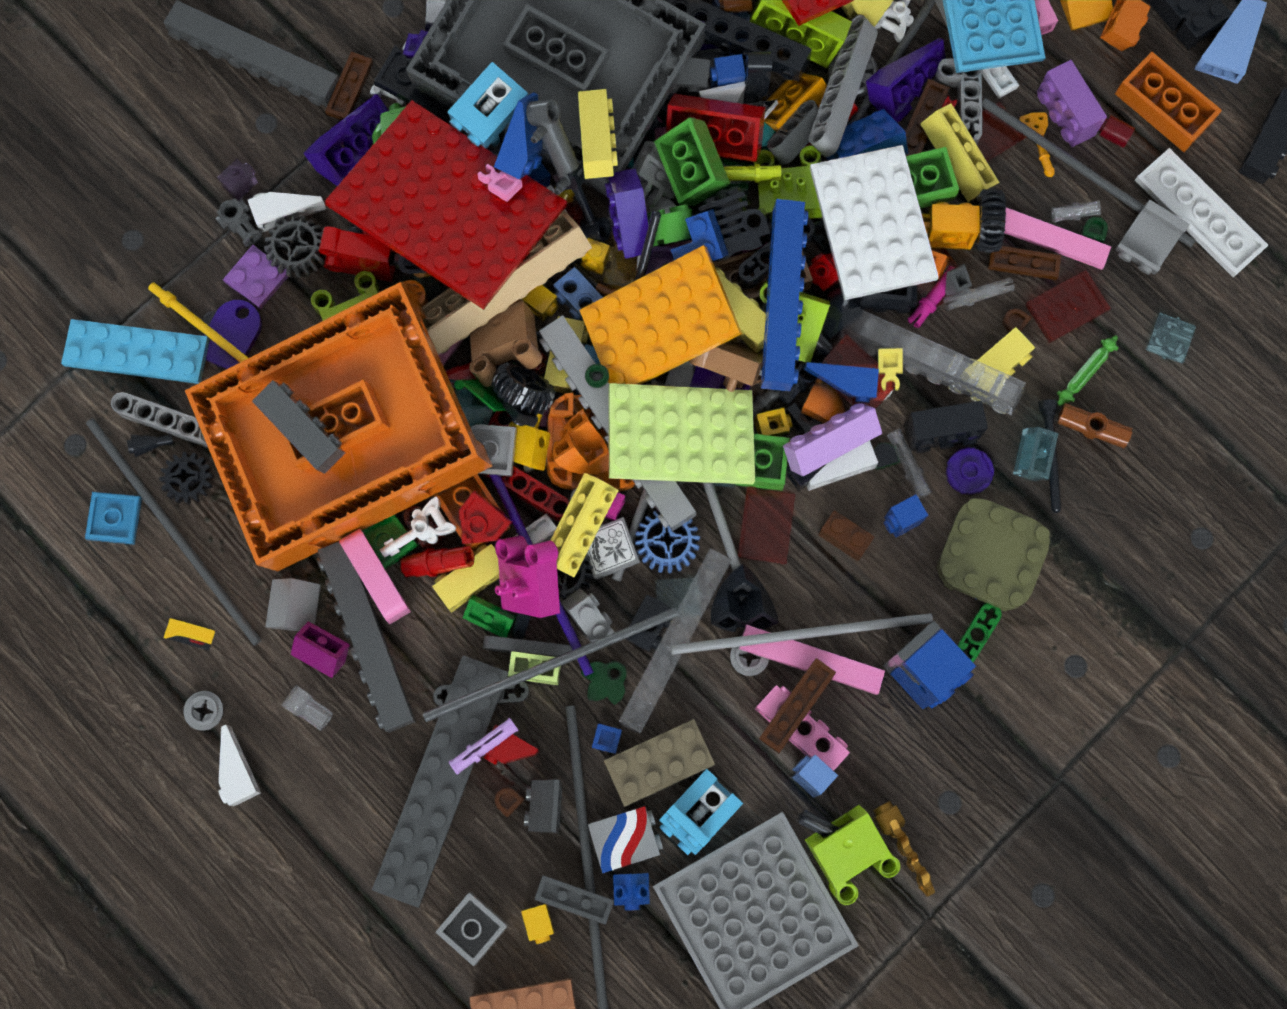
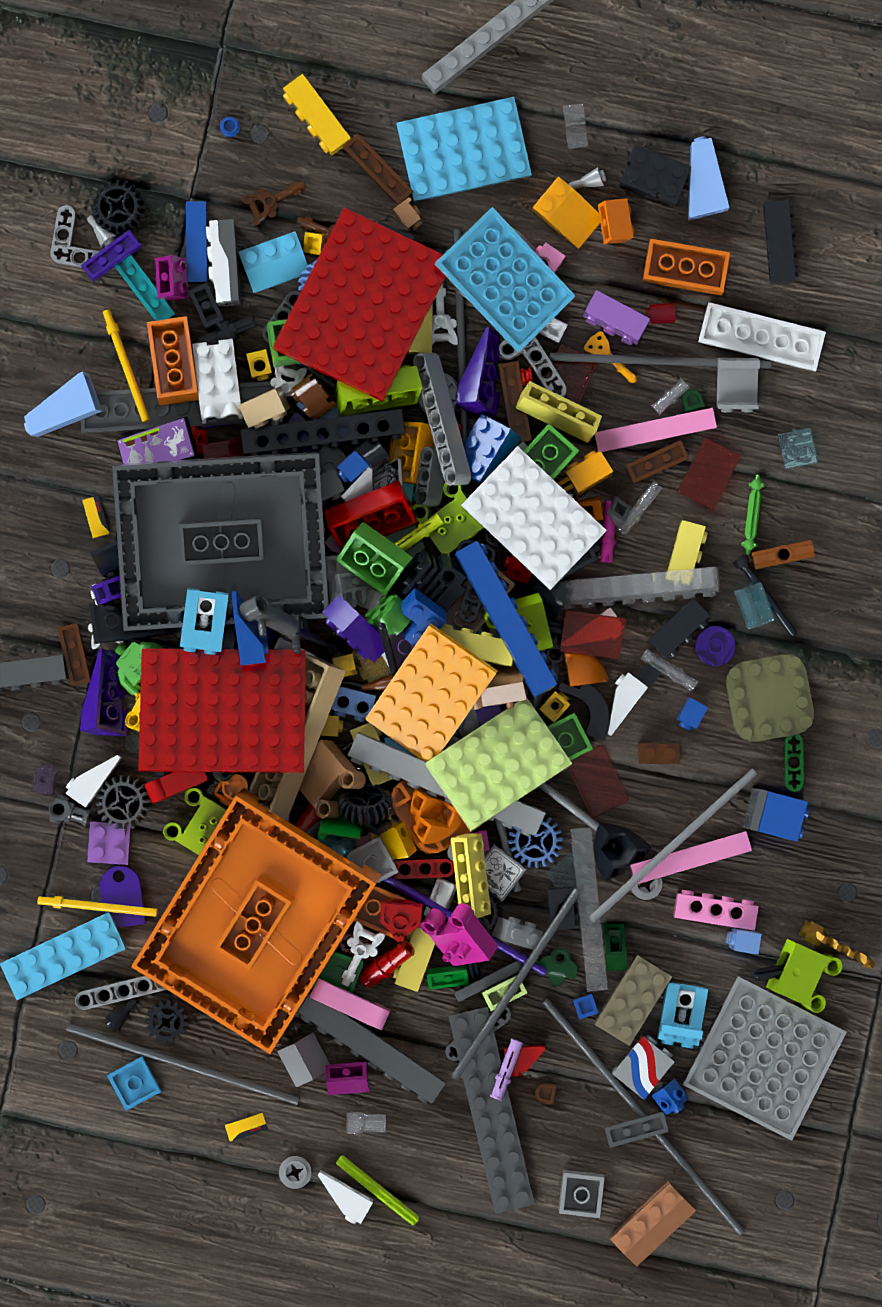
camera: 30 degrees left, 10 degrees up
(271, 785) = (377, 1190): none -> lime axle
(299, 426) = (235, 942): dark grey brick -> none
(500, 184) = (253, 672): bright pink plate -> none
(538, 923) = (622, 1160): yellow brick -> none
(545, 806) = (575, 1082): dark grey slope -> none
(595, 133) = (294, 588): light yellow brick -> none
(596, 368) = (412, 769): dark green plate -> none
(676, 699) = (615, 947): none -> dark green slope
(797, 705) = (702, 899): reddish brown plate -> none
(832, 439) = (606, 695): lavender brick -> none
(850, 380) = (591, 643): blue slope -> none
(890, 363) = (611, 612): light yellow plate -> none
(992, 220) = (614, 454): black gear -> none
(1015, 318) = (678, 510): reddish brown tile -> none

